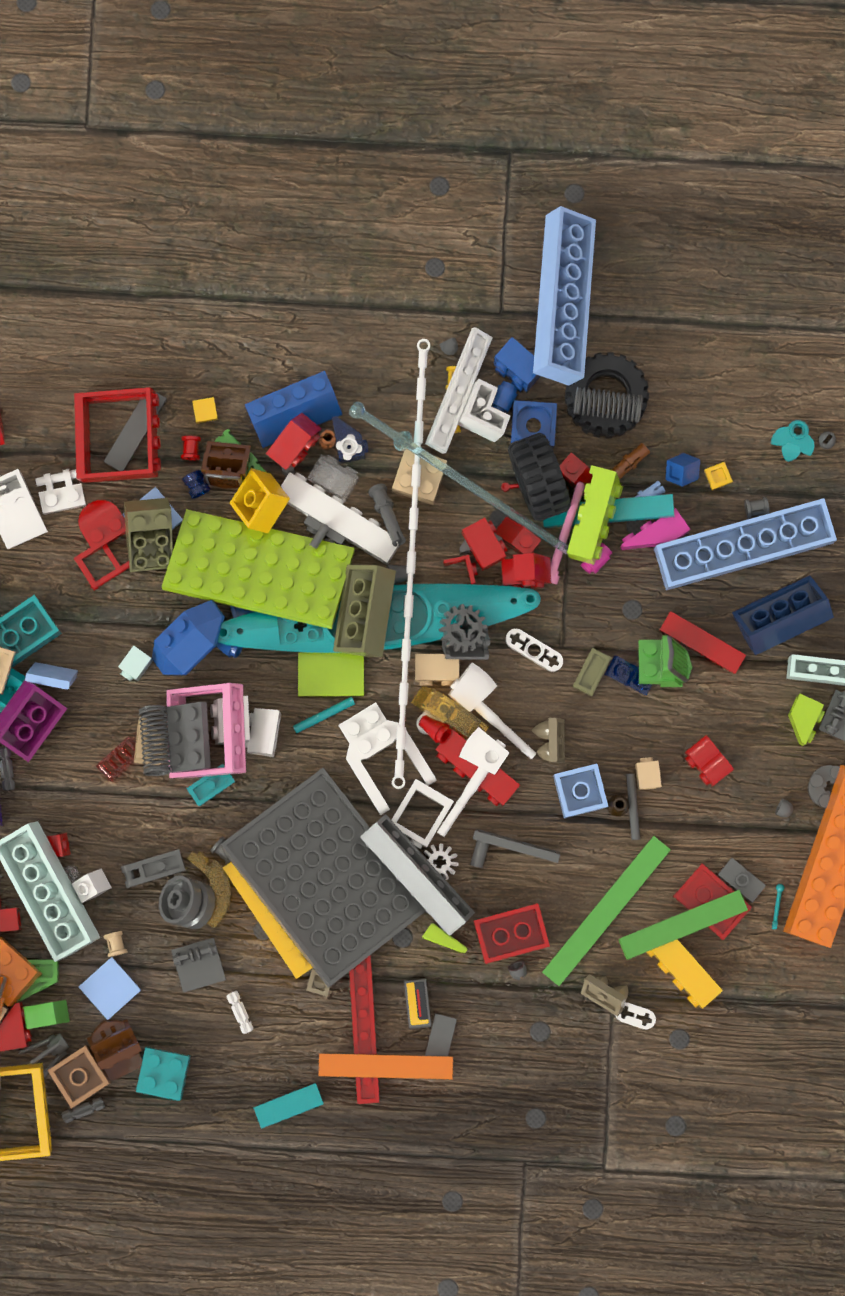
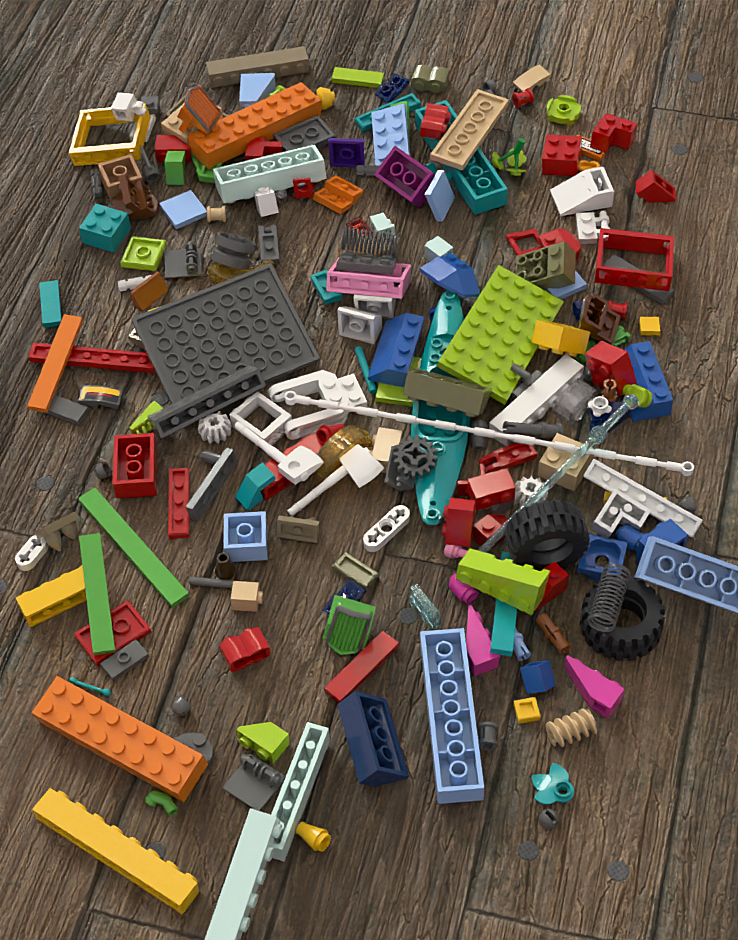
camera: 105 degrees right, 30 degrees down
(54, 803) = (338, 194): none -> orange slope
(105, 738) = (382, 224): none -> light aqua brick
(193, 1015) = (143, 253): none -> lime plate
(253, 991) = (148, 291): none -> dark orange slope
(298, 682) = (397, 349): none -> blue slope
(324, 409) = (643, 395): none -> lime arm
(423, 540) = (508, 457): none -> red hinge
(466, 500) = (526, 488): none -> white gear
(514, 796) = (255, 481): none -> teal slope
(541, 877) = (178, 499): none -> red tile
(631, 587) = (427, 610): none -> clear light blue plate
(690, 410) = (596, 690): none -> dark pink slope
(734, 429) = (571, 726): none -> tan piece

